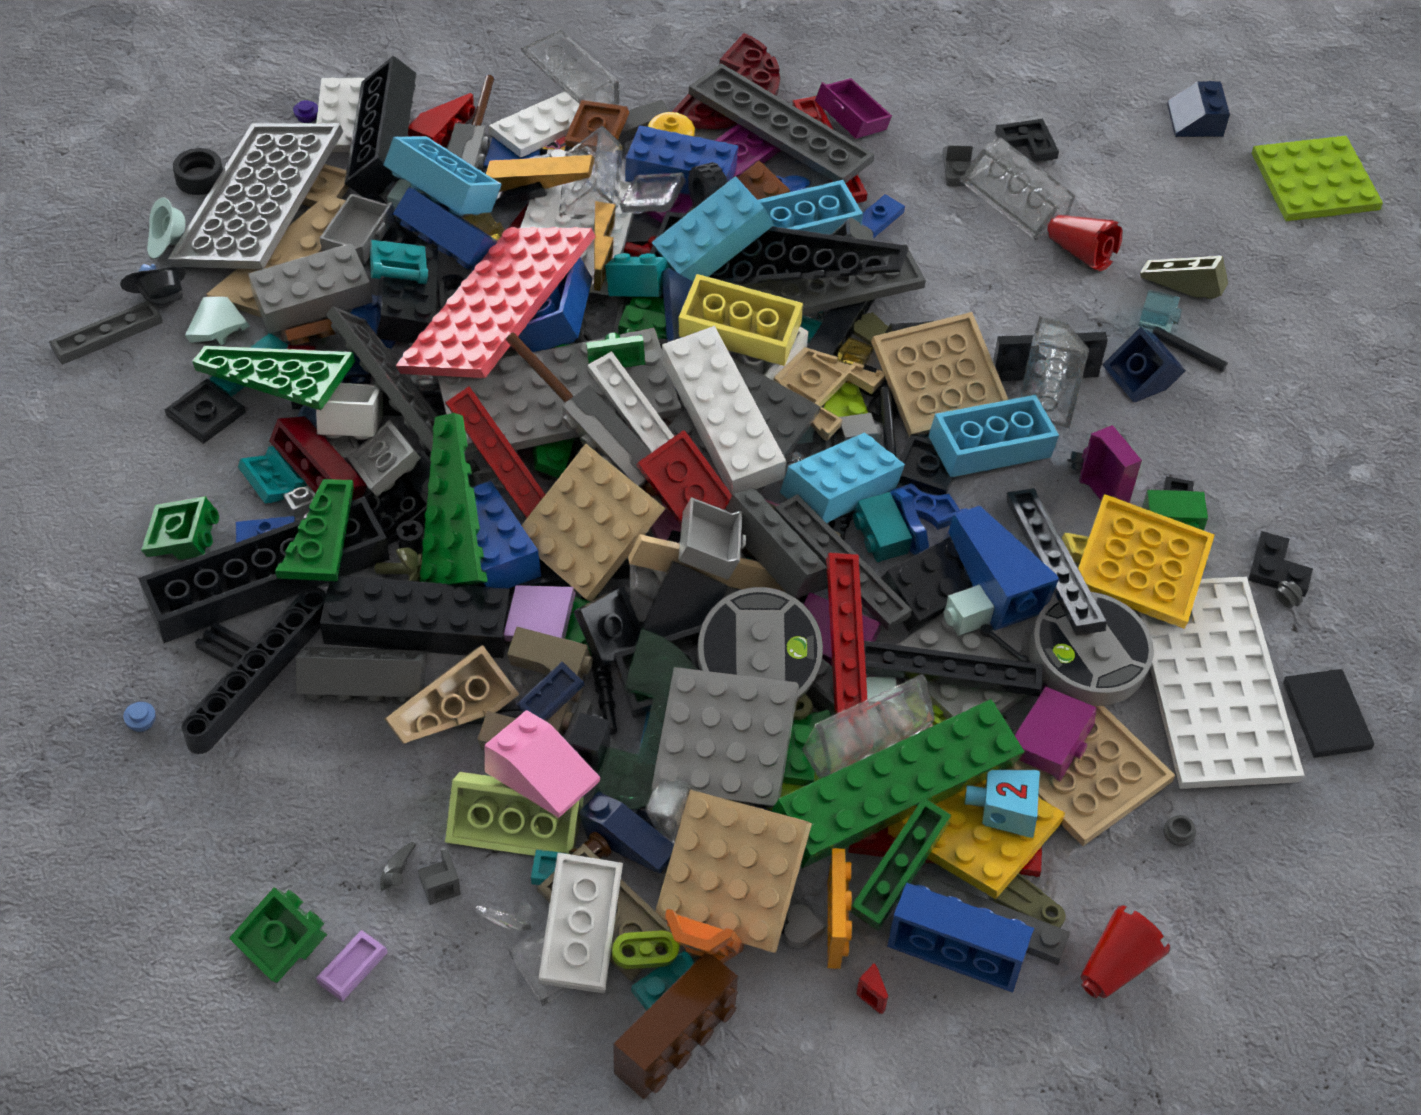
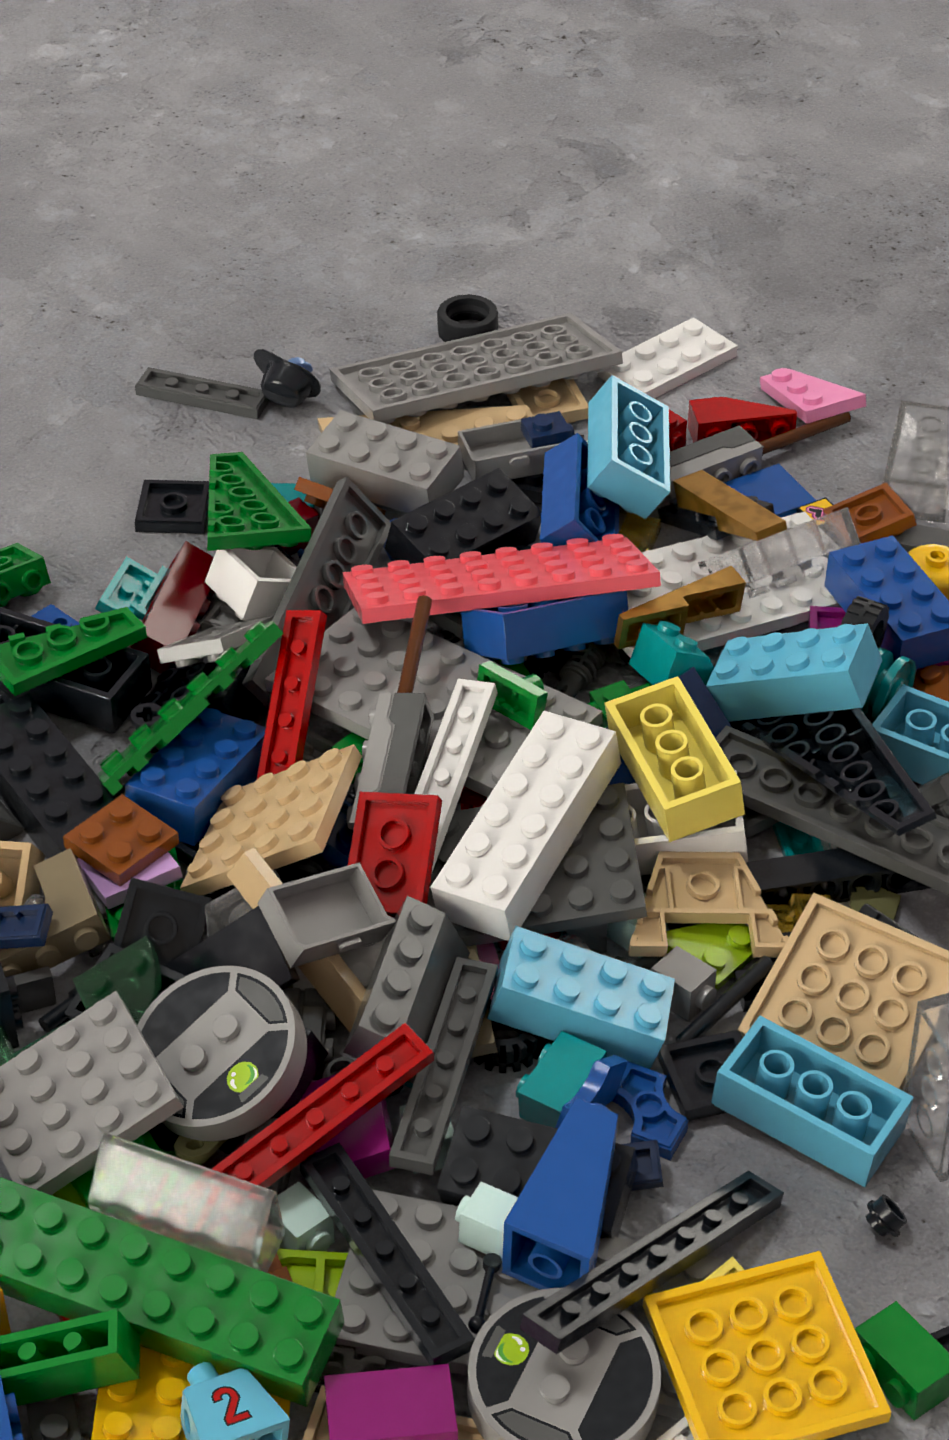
camera: 55 degrees right, 10 degrees down
(165, 226) = (374, 343): light aqua piece -> none
(215, 320) = (287, 444): light aqua slope -> none
(306, 111) = (636, 334): dark purple plate -> none
(371, 200) = (546, 429): none -> dark blue bracket
(380, 116) = (684, 373): black brick -> none
(398, 261) = (477, 483): teal plate -> none
(410, 565) = (106, 737): olive plant -> none
(455, 80) = (809, 395): none -> bright pink wing
(524, 601) = (121, 840): none -> dark orange plate
(536, 125) = (815, 481): white plate -> none
(652, 193) = (811, 605): clear plate -> none
(1110, 465) = (878, 1238): magenta container -> none

